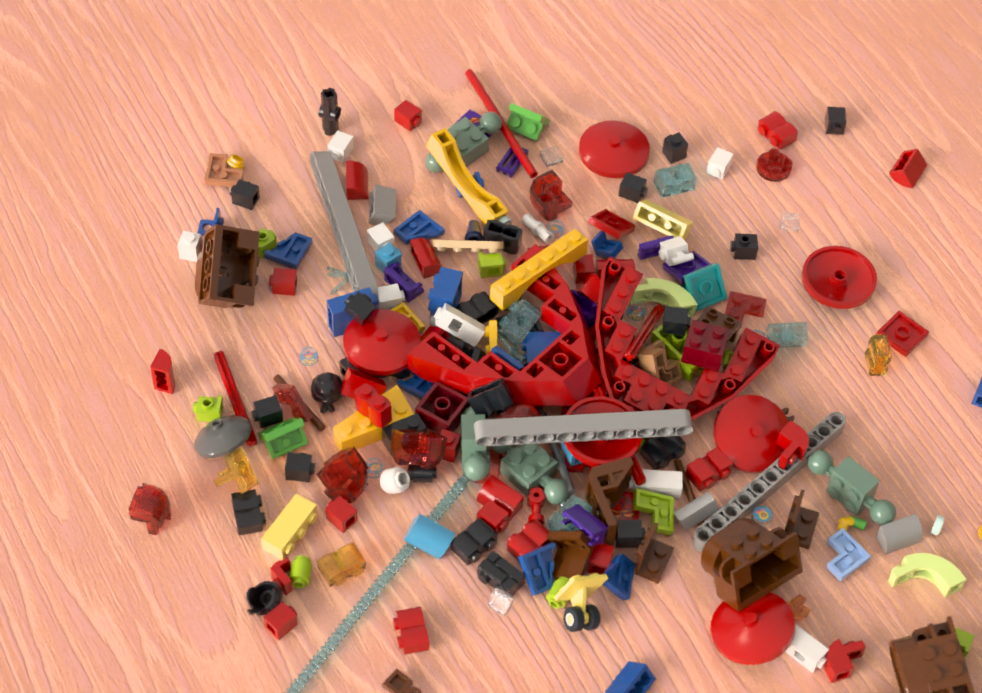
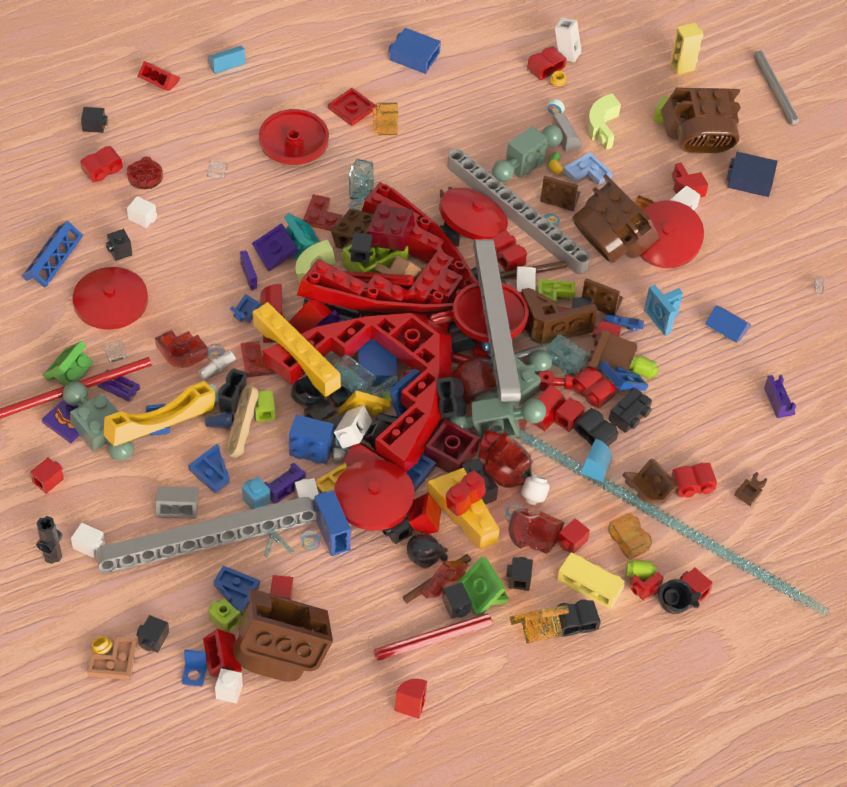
camera: 90 degrees left, 0 degrees up
(151, 507) = (581, 698): clear red brick -> none
(208, 408) = (450, 657): lime brick -> none
(222, 436) = (503, 643): dark grey dish -> none
(308, 356) = (377, 570): clear tile -> none
(356, 181) = (137, 526): red brick -> none
(359, 307) = (348, 500): black brick -> none
(379, 236) = (226, 501): white brick -> none
(401, 581) = (651, 483): none -> reddish brown bracket
(425, 257) = (252, 464): red brick -> none
(501, 601) = (657, 410): clear tile -> none
(577, 590) = (657, 345): light yellow plate -> none
(585, 522) = (587, 331): dark purple hinge -> none
(611, 224) = (218, 302): red tile -> none
(633, 188) = (169, 283): black brick -> none
(637, 611) = (663, 308): none -> dark azure bracket
(662, 98) = (47, 251): none -> blue fence
(662, 219) = (216, 260): light yellow brick -> none
(675, 180) = (161, 249): clear light blue brick -> none
(675, 251) = (260, 252): white brick -> none
(696, 511) = (555, 260): light grey brick -> none
(744, 246) = (250, 202): black brick -> none
(795, 443) = (491, 180): red brick -> none
(945, 222) = (227, 59): none -> dark azure brick

